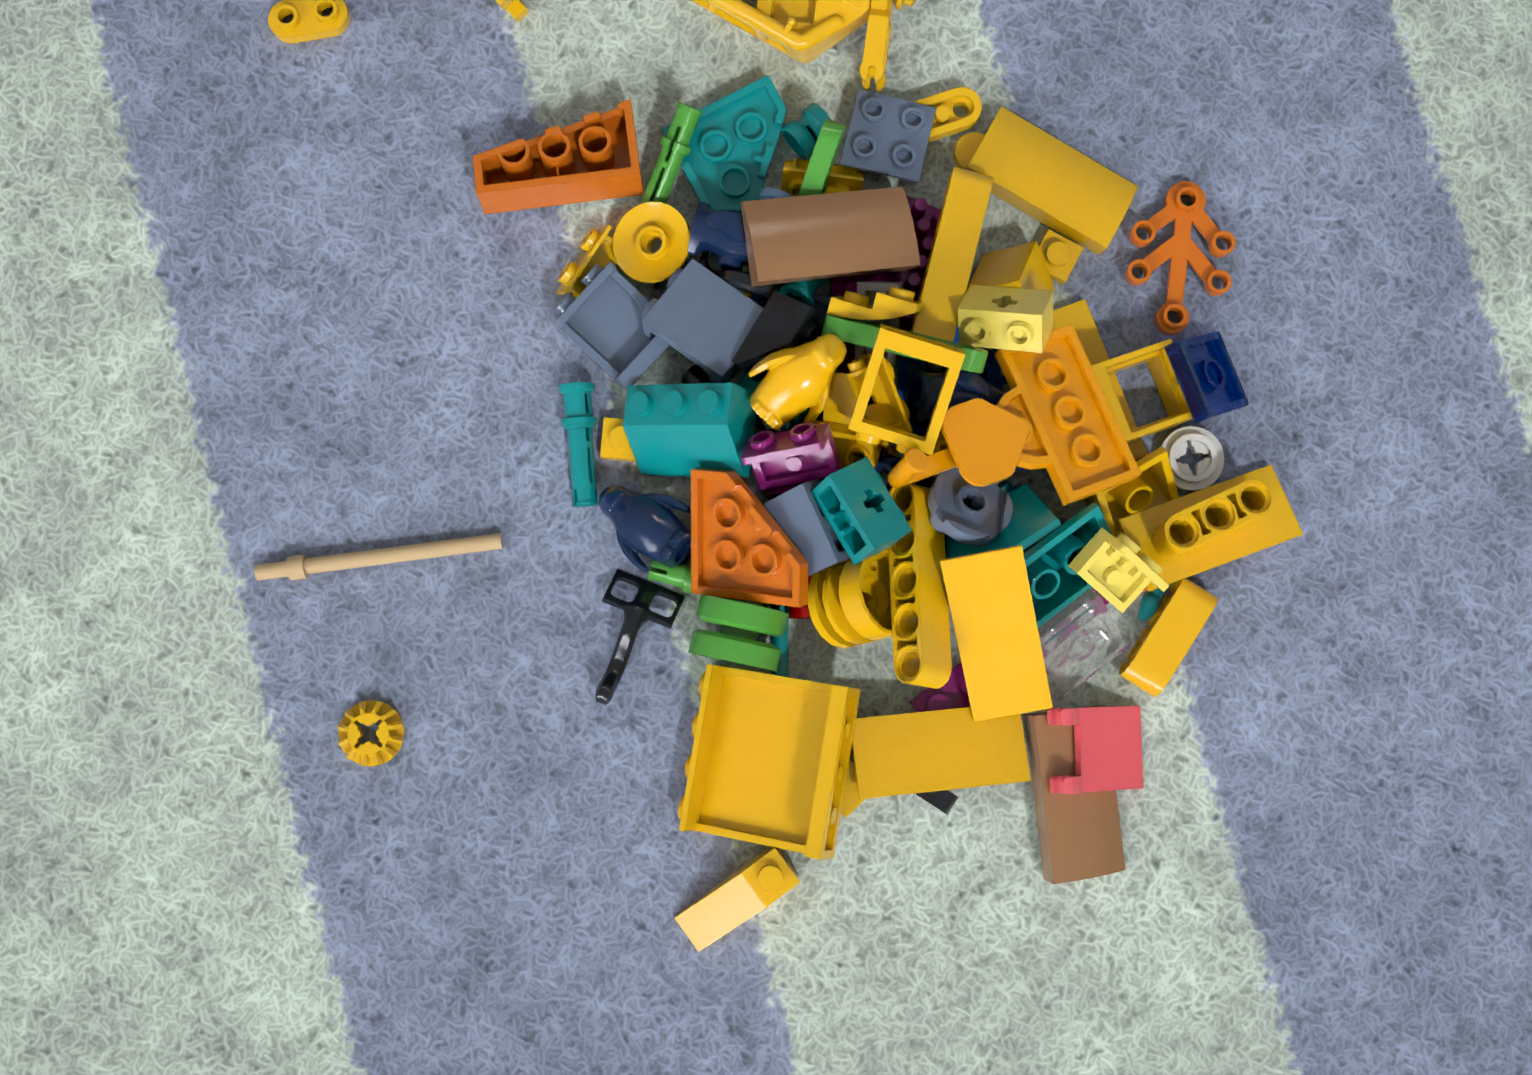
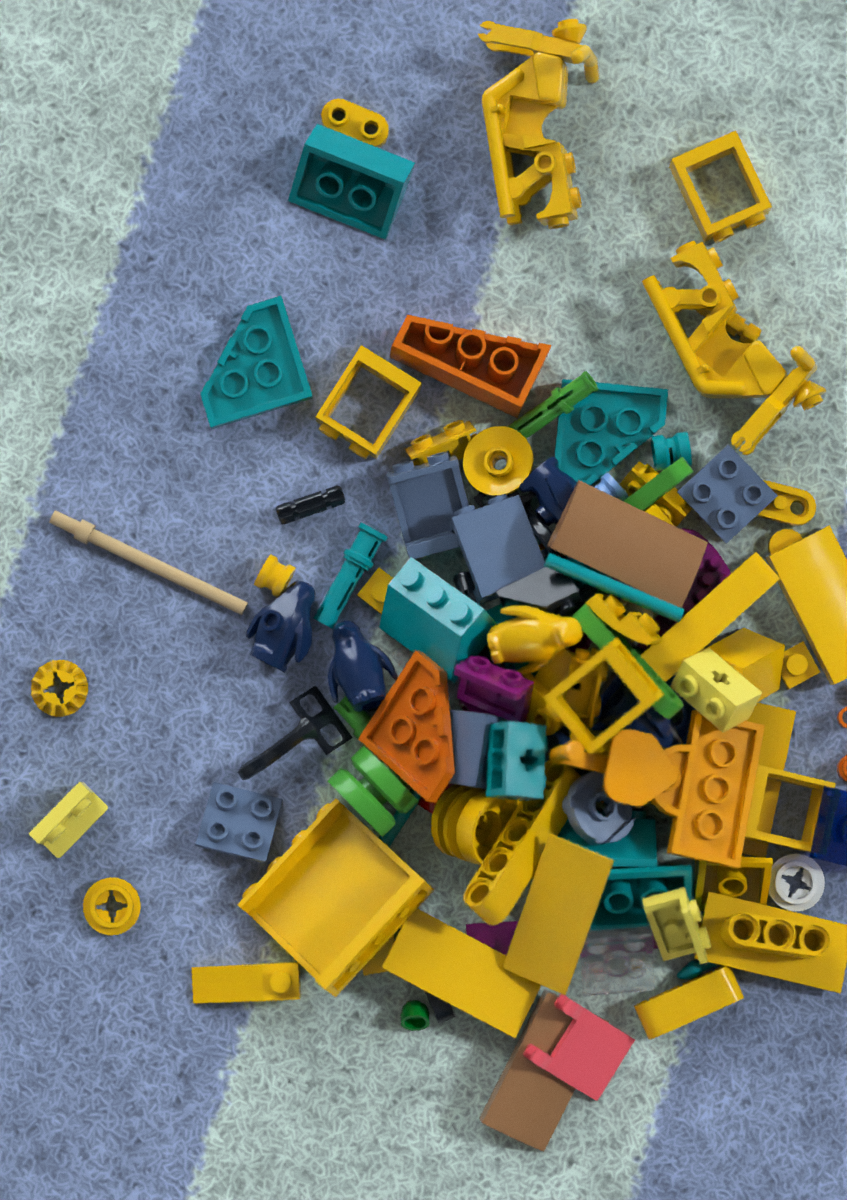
camera: 40 degrees right, 0 degrees up
(338, 72) = (350, 181): none -> teal slope
(363, 304) = (257, 368): none -> teal plate
(460, 855) = (69, 820): none -> light yellow bracket
(488, 229) = (385, 371): none -> yellow window
(500, 401) = (310, 504): none -> black axle
(509, 490) = (274, 576): none -> yellow wheel
(550, 533) = (284, 627): none -> dark blue animal
(556, 930) = (99, 894): none -> yellow gear
(629, 748) = (239, 822): none -> sand blue hinge
(843, 282) = (614, 587): none -> teal piece
(919, 822) = (415, 1016): none -> green hinge

